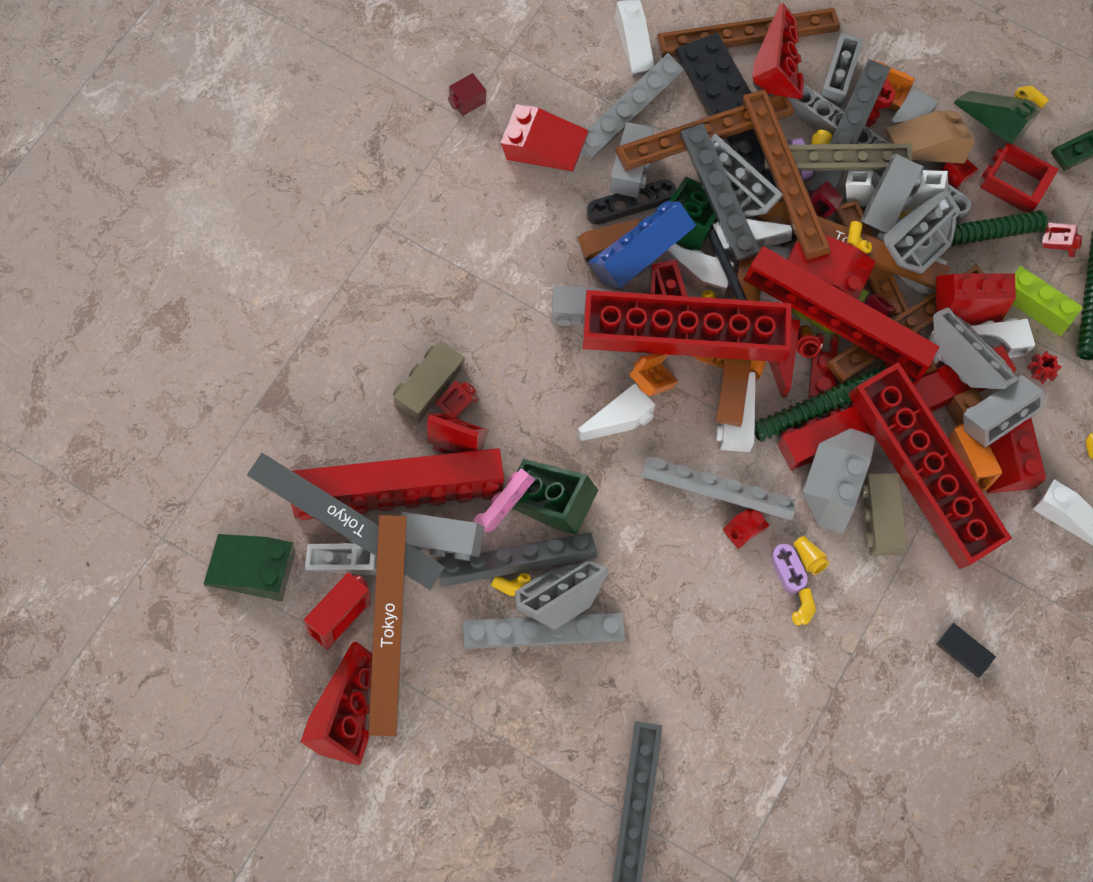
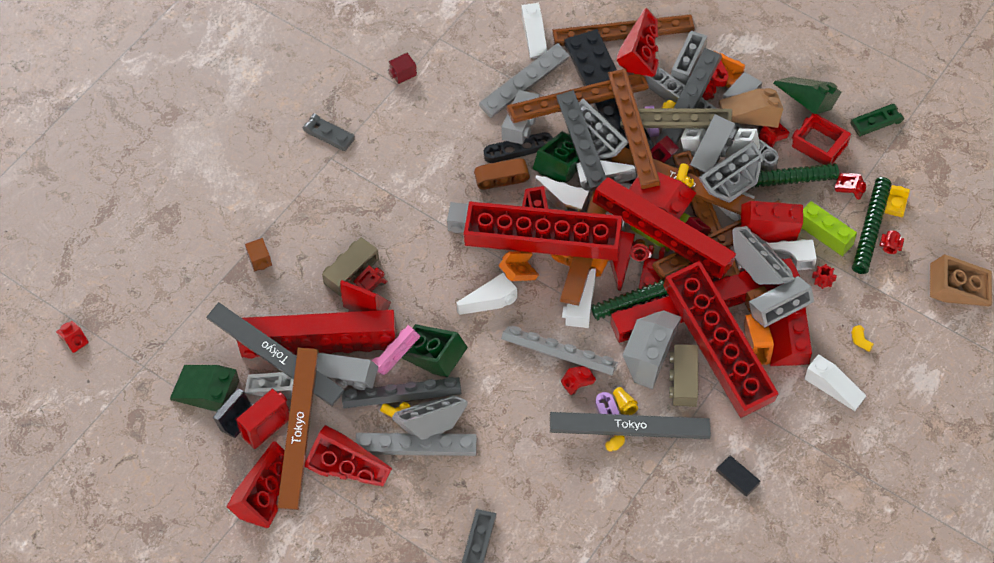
camera: 15 degrees right, 10 degrees down
(59, 501) = (72, 336): none -> red bracket
(296, 603) = (230, 411): none -> black bracket
(303, 370) = (258, 254): none -> dark orange brick
(378, 189) = (329, 133): none -> dark grey plate
(448, 657) = (342, 457): none -> red wedge
(542, 139) = (454, 100): red slope -> none
(642, 245) = (519, 174): blue wedge -> none
(726, 266) = (581, 190): black bar -> none
(821, 590) = (630, 425): none -> dark grey tile
(1031, 94) = (840, 80): yellow arm -> none

